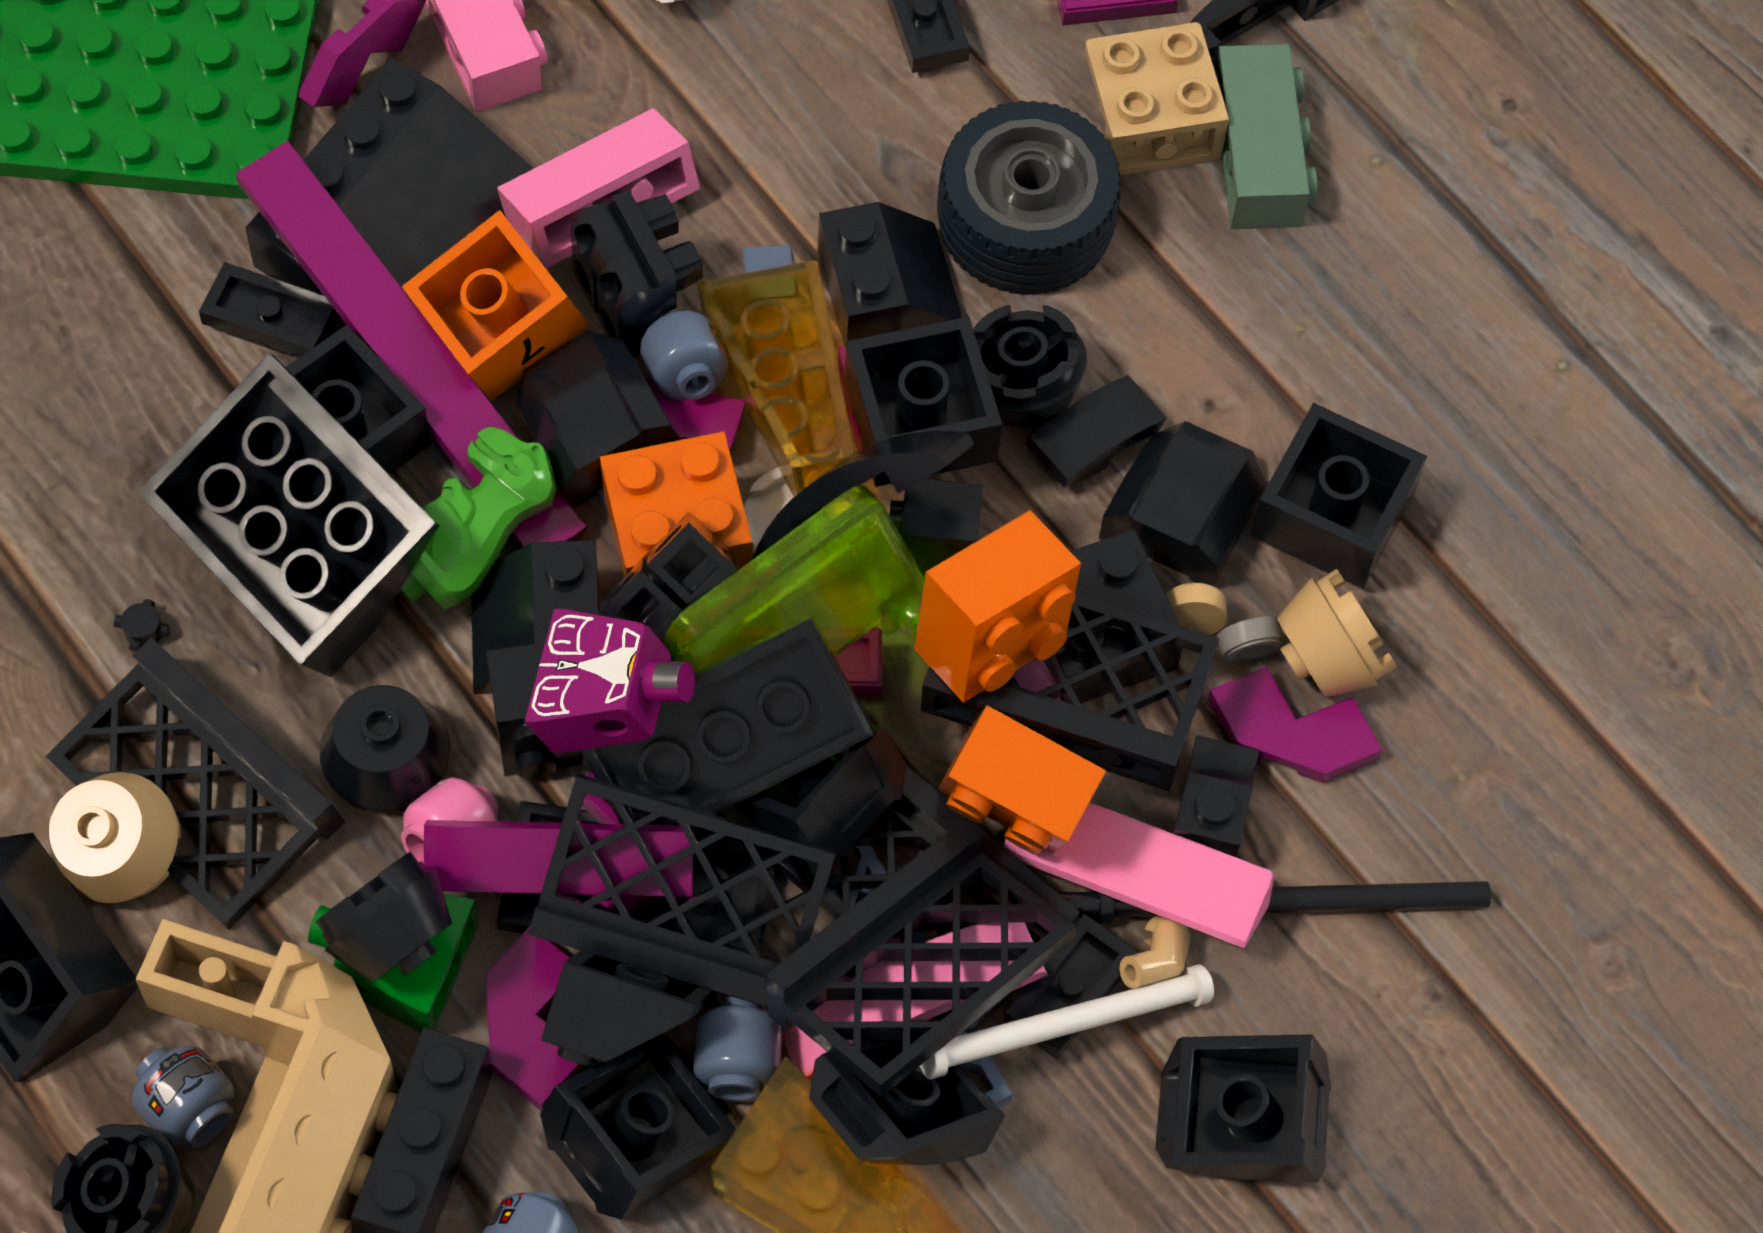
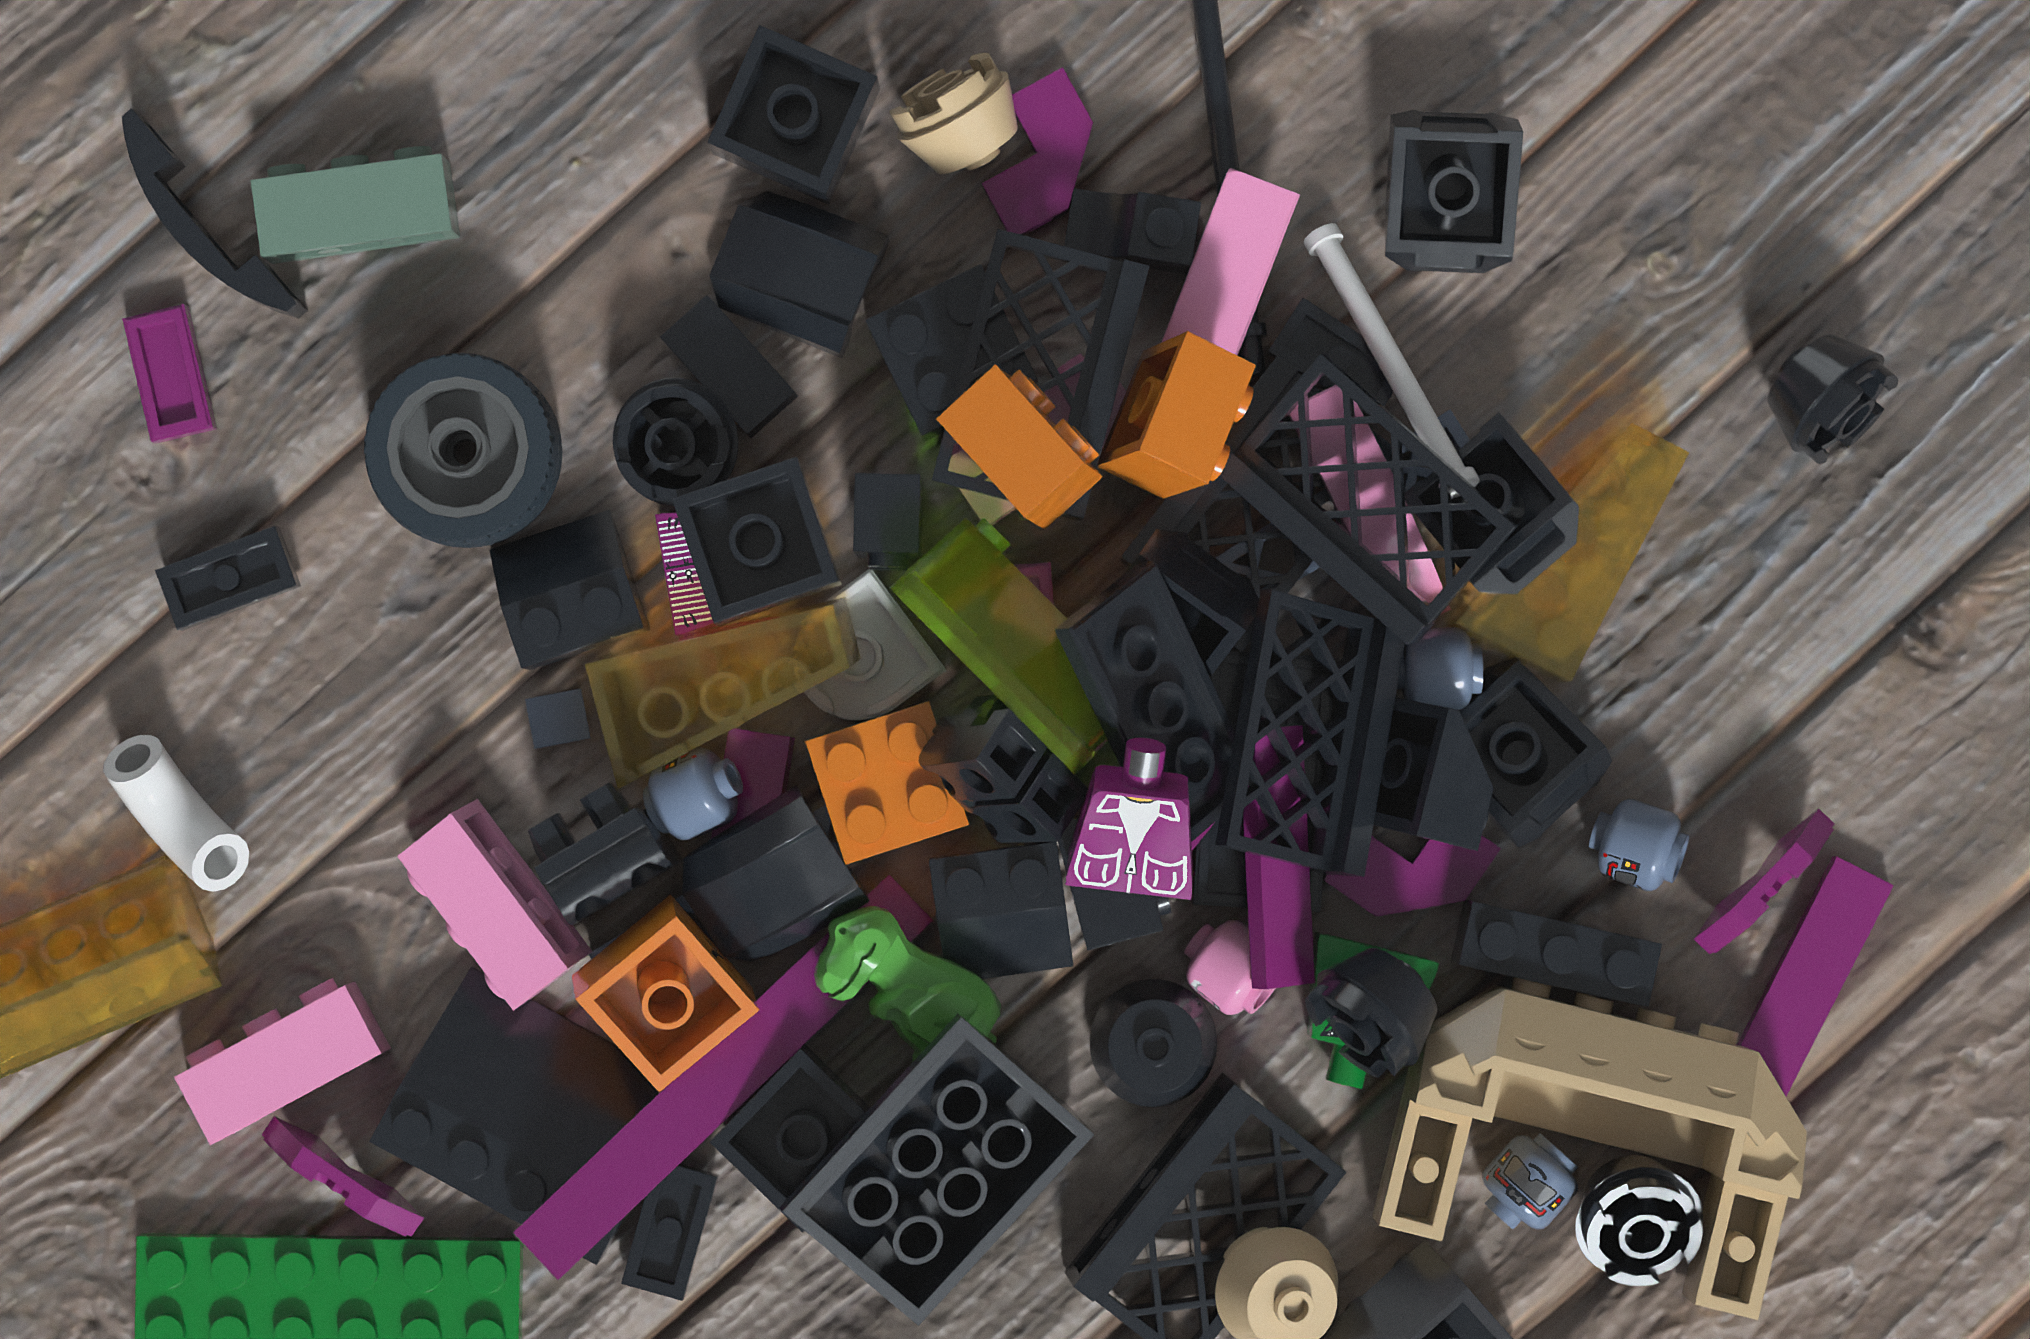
camera: 90 degrees left, 25 degrees up
(140, 624) = (1035, 1302): black piece -> none
(903, 459) = (864, 550): black slope -> none
(1158, 97) = (322, 321): tan bracket -> none
(1163, 960) = (1310, 273): tan arm -> none
(1199, 607) = (927, 256): tan tile -> none
(1250, 639) = (956, 201): light grey tile -> none

